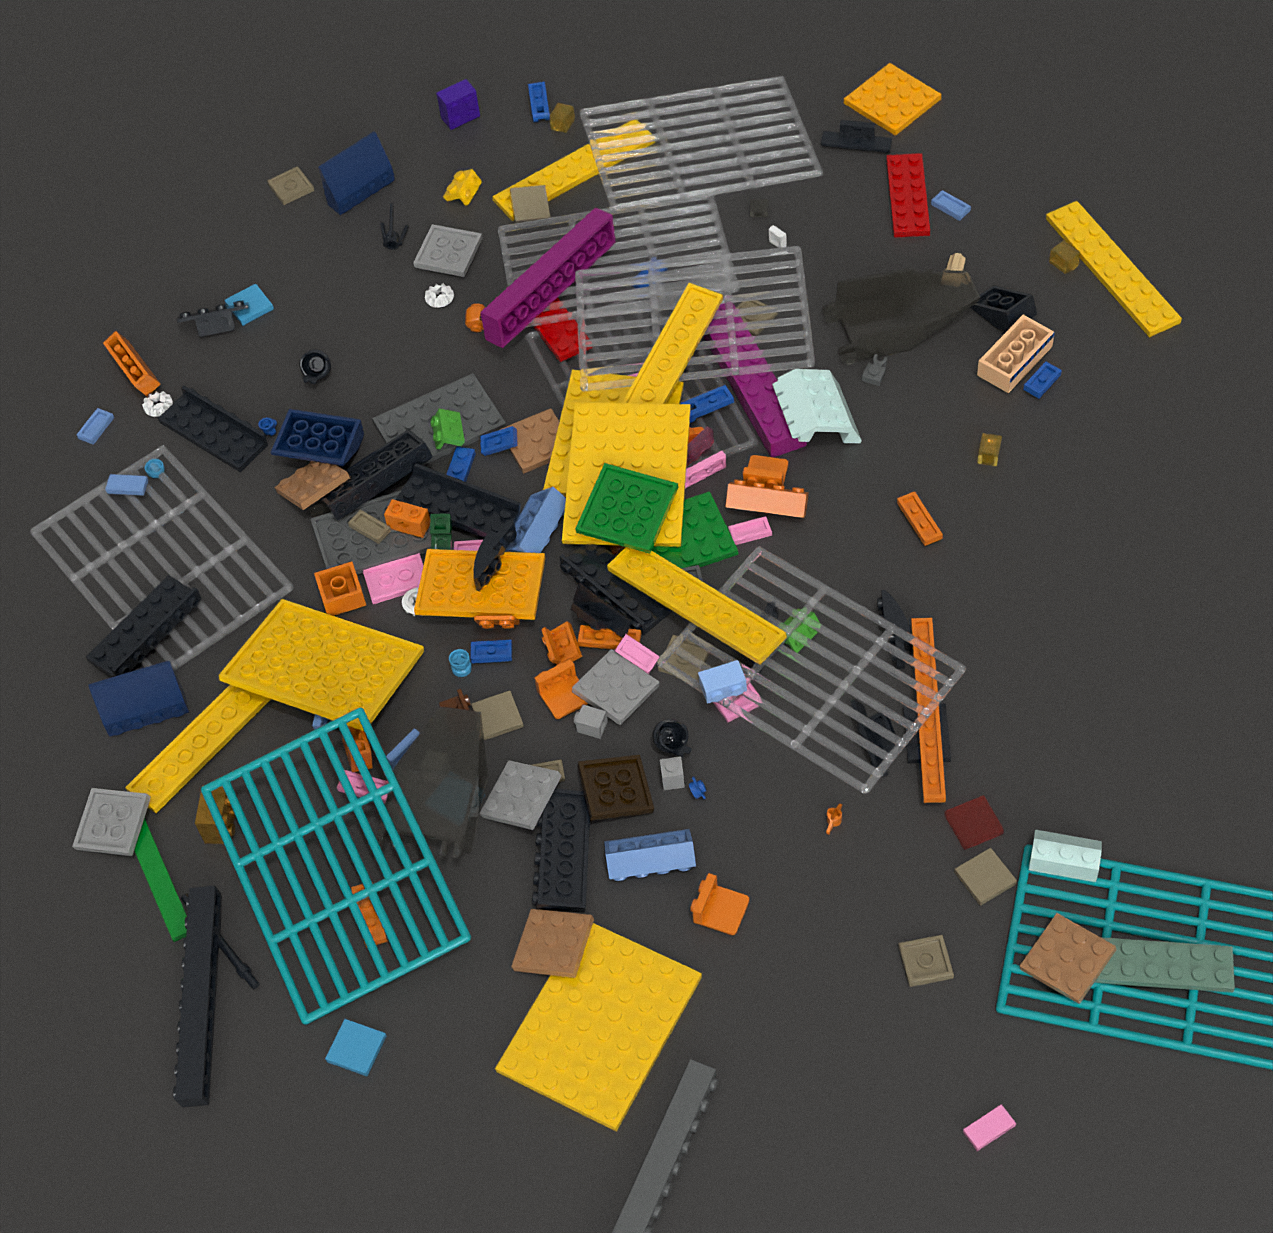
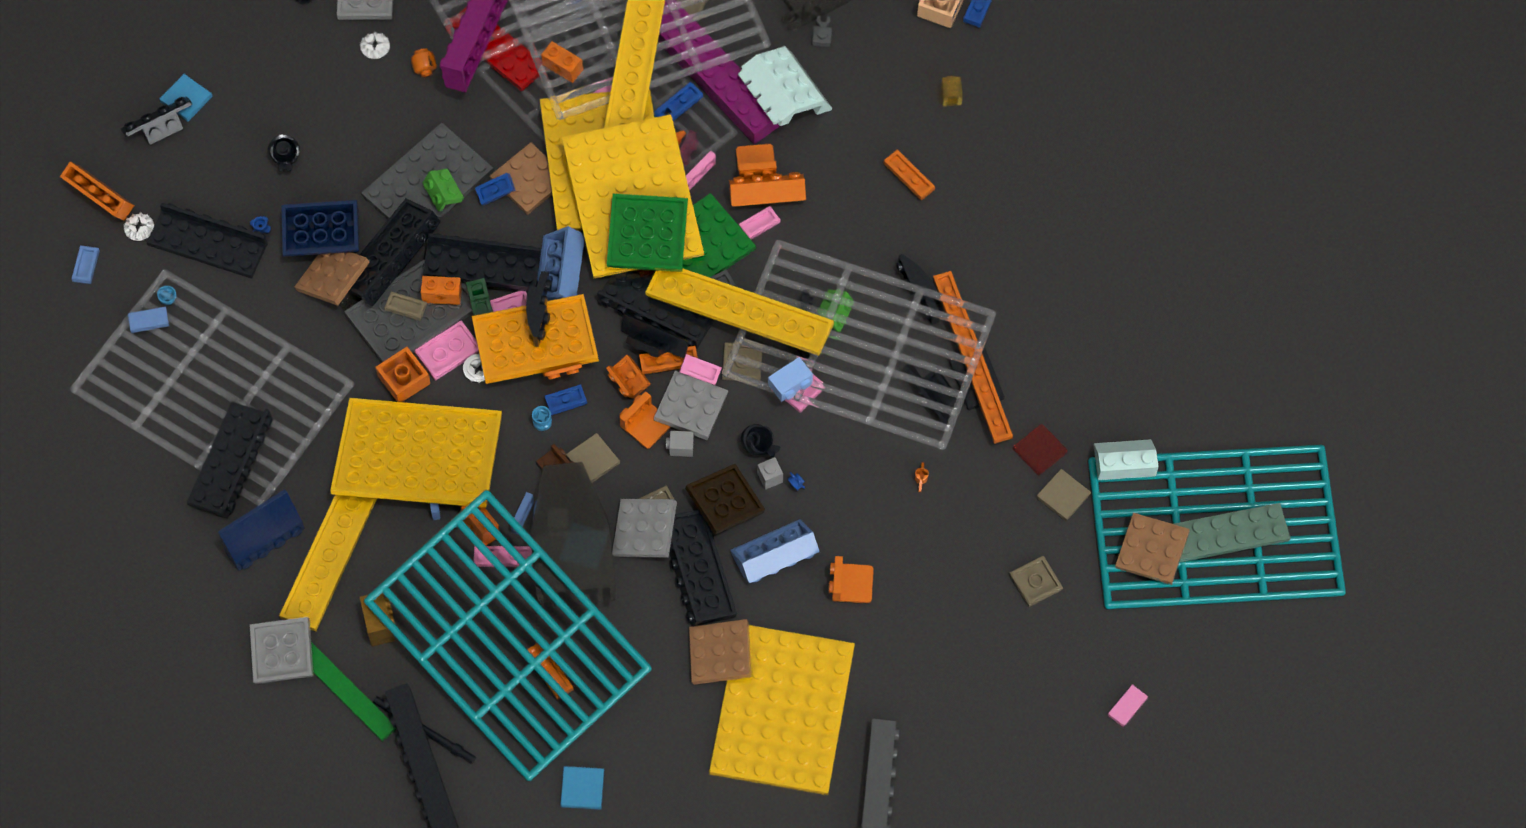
camera: 25 degrees left, 10 degrees up
(461, 463) = (465, 220): blue plate -> none
(602, 337) = (562, 62): none -> orange brick

